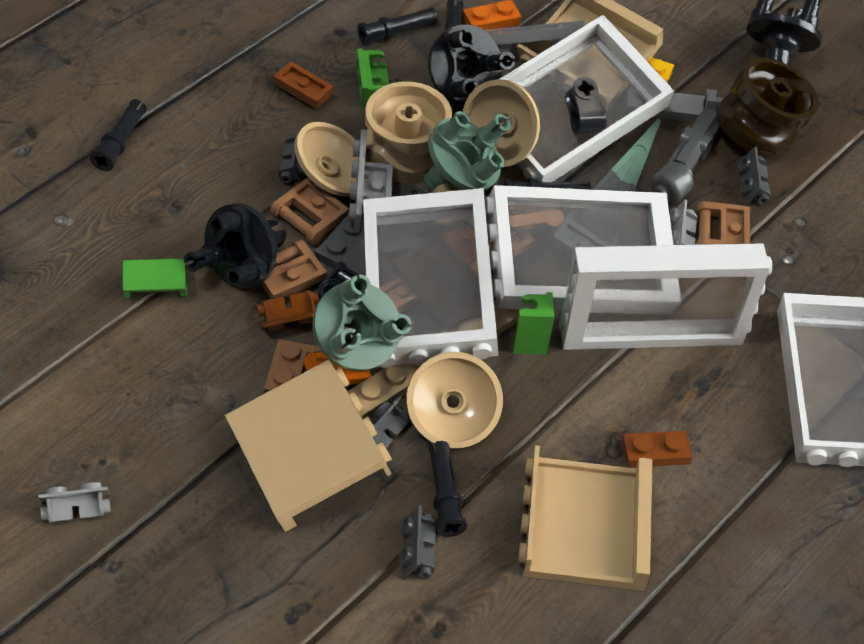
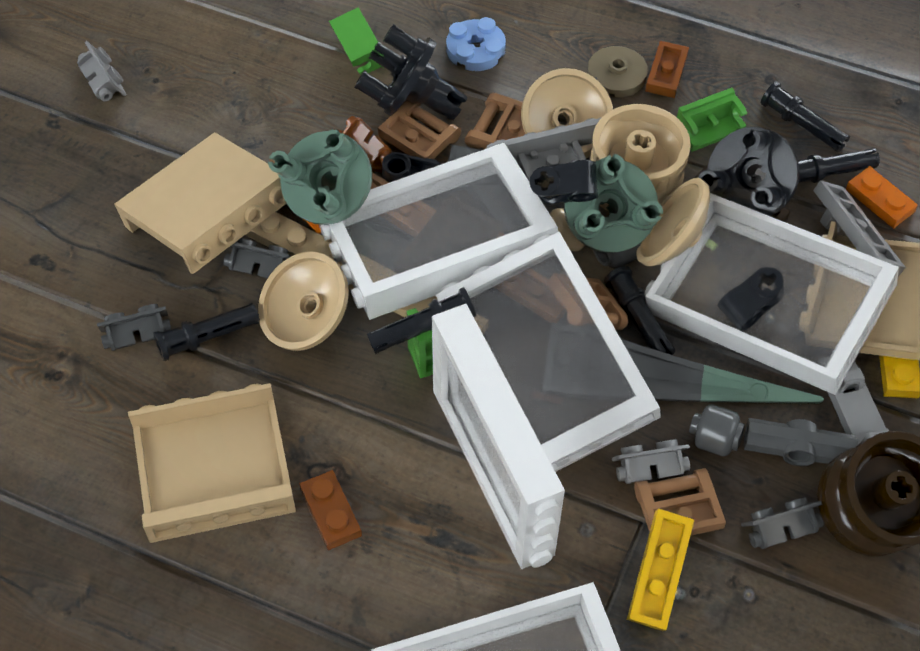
camera: 75 degrees right, 5 degrees up
(198, 186) = (482, 31): none -> light blue plate
(283, 116) = (618, 70): none -> dark tan plate
(450, 160) = (572, 182): none -> black piece
(541, 291) = (416, 323): none -> black pin
(784, 258) = (660, 570): none -> yellow plate

